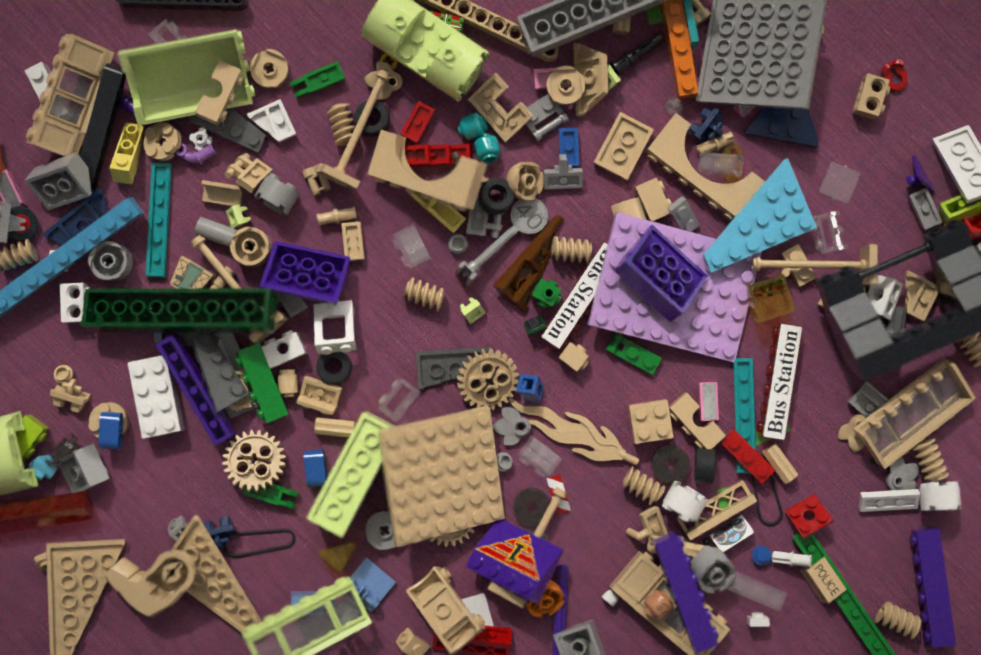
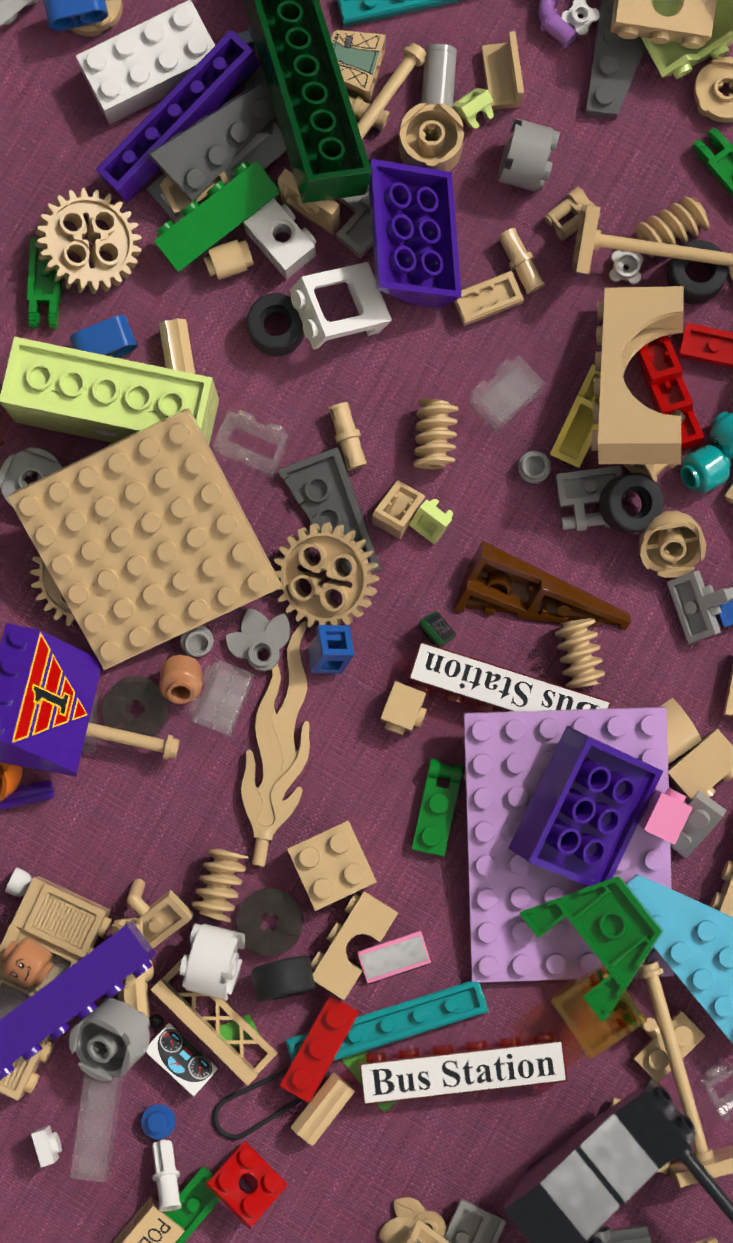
camera: 75 degrees right, 5 degrees down
(251, 176) = (544, 106): tan plate -> none
(274, 120) = (645, 120): white wing -> none
(319, 395) = (222, 314): tan bracket -> none
(362, 156) = (628, 258): none -> white plate
(410, 344) = (347, 436): none -> tan pin
(459, 327) = (397, 509): none -> tan slope
(523, 477) = (180, 679): none -> nougat head
(526, 216) = (610, 566): light grey piece -> none
(539, 293) = (501, 621): green brick -> none
(553, 482) = (152, 761): sticker -> none
(676, 230) = (666, 815): none -> bright pink brick
(728, 277) = (612, 926): none -> green wing
(891, 290) = (675, 1216): white brick -> none

